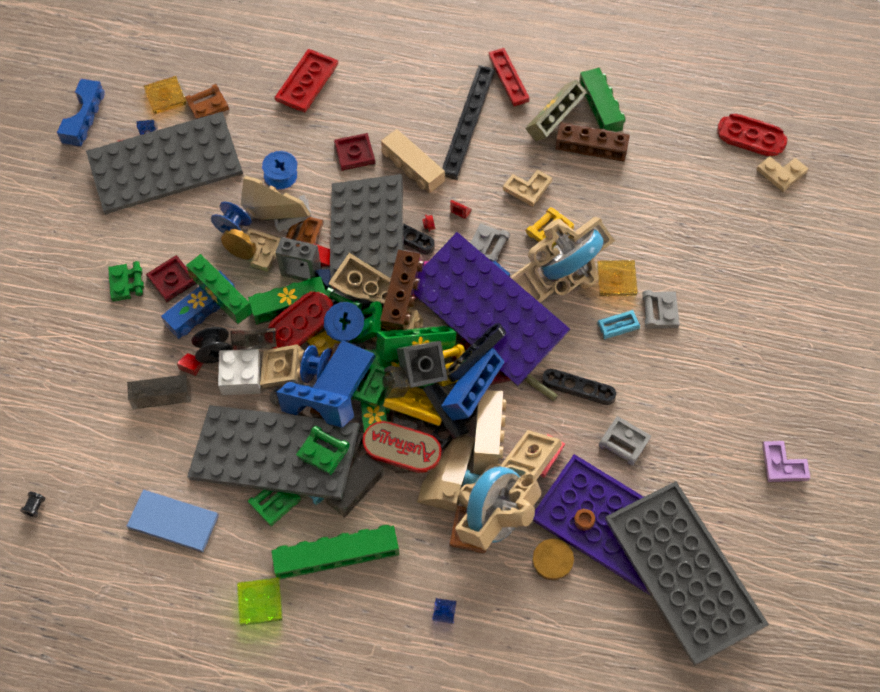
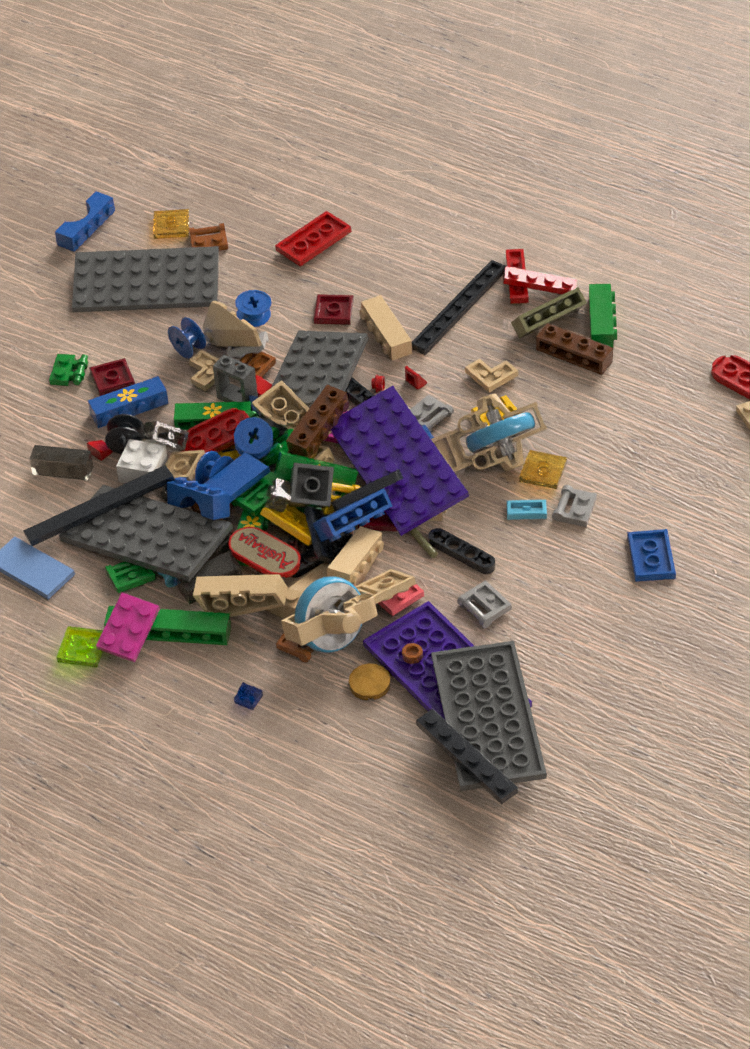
camera: 20 degrees right, 15 degrees down
(145, 125) = (141, 243): clear blue tile -> none
(216, 435) = (98, 505): none -> black tile
(219, 289) = (149, 387): green brick -> none
(238, 244) = (185, 359): pearl gold tile -> none
(301, 571) = (128, 627): none -> dark pink plate
(320, 456) = (185, 540): green plate -> none
(398, 503) = (240, 593): none -> tan wedge
(532, 78) = (538, 280): none -> plate
(690, 629) = (467, 756): none -> black plate
(750, 344) = (651, 555): none -> blue tile
(781, 469) = (629, 662): lavender plate -> none

